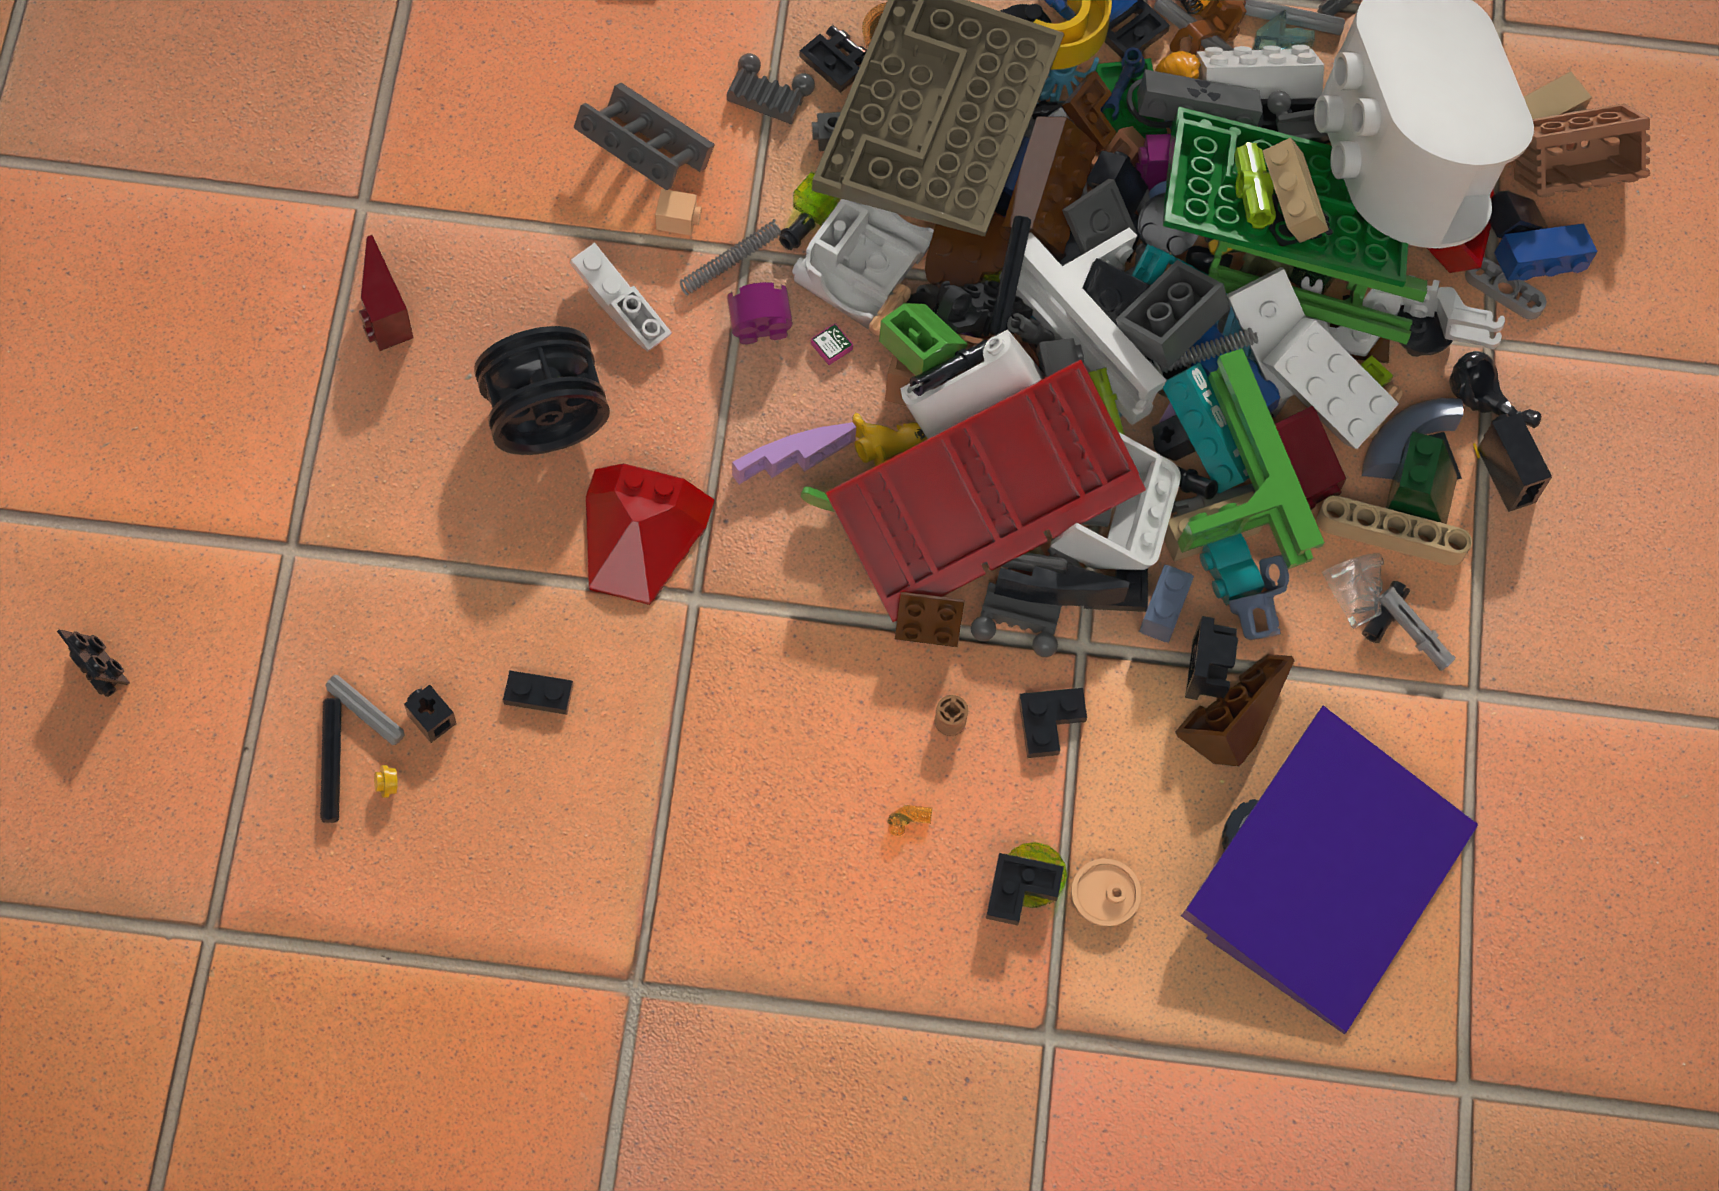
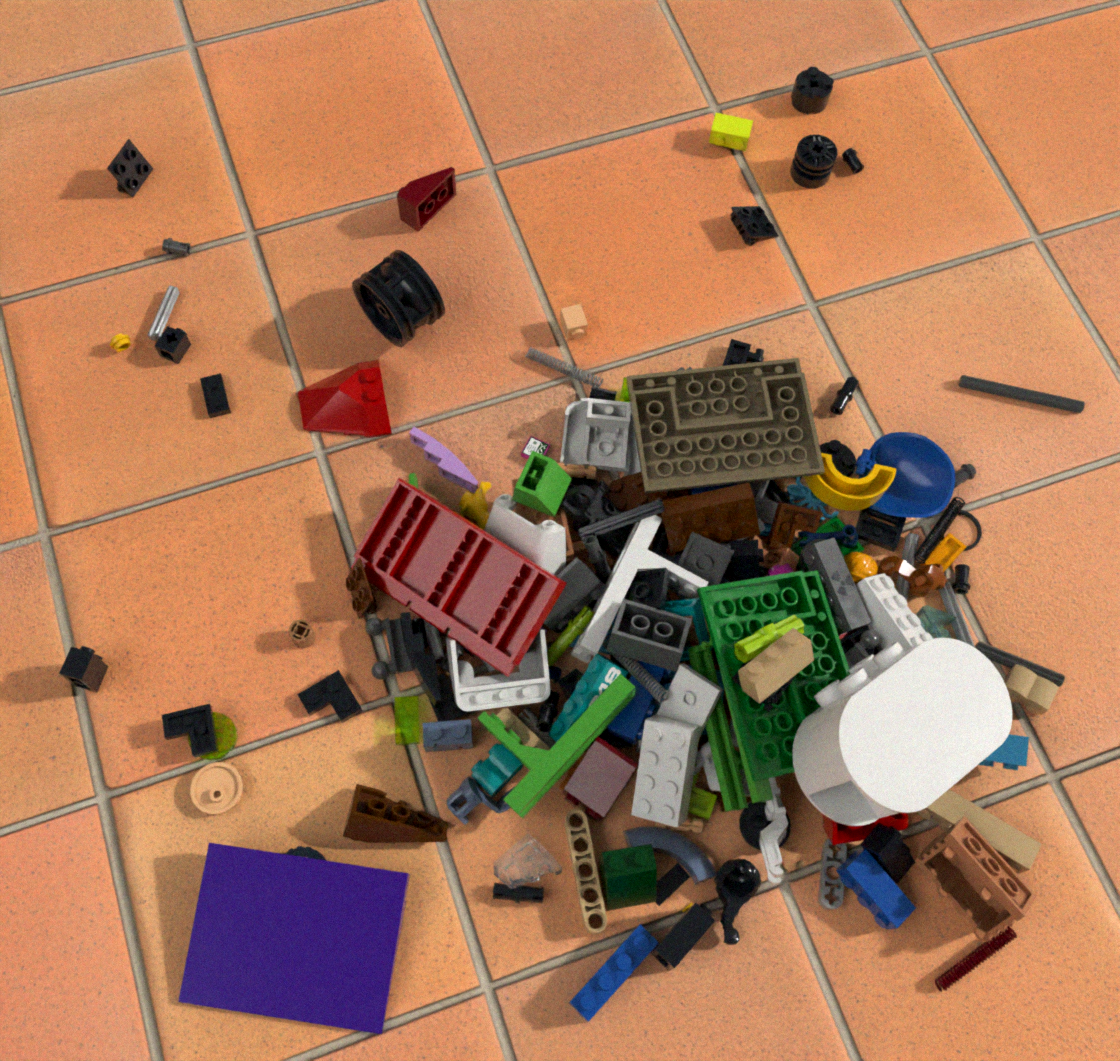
camera: 65 degrees right, 0 degrees up
(262, 651) = (176, 247): none -> dark grey pin
(330, 760) = (123, 311): black axle -> none
(618, 299) = (498, 320): white slope -> none
(653, 123) = (630, 280): dark grey fence -> none
(760, 312) = (528, 396): magenta brick -> none
(765, 96) = (689, 337): dark grey gear -> none
(877, 986) = (84, 668): none -> black brick
(906, 815) = (221, 637): clear yellow arm -> none
(960, 363) = (523, 508): black pin -> none
(1122, 643) = (407, 720): none -> clear neon green plate
(1211, 656) = (413, 780): black panel -> none
(1416, 628) = (507, 931): light grey pin -> none
(1519, 553) = (613, 973): none -> blue brick
(1652, 217) = (976, 959): none -> dark red piece

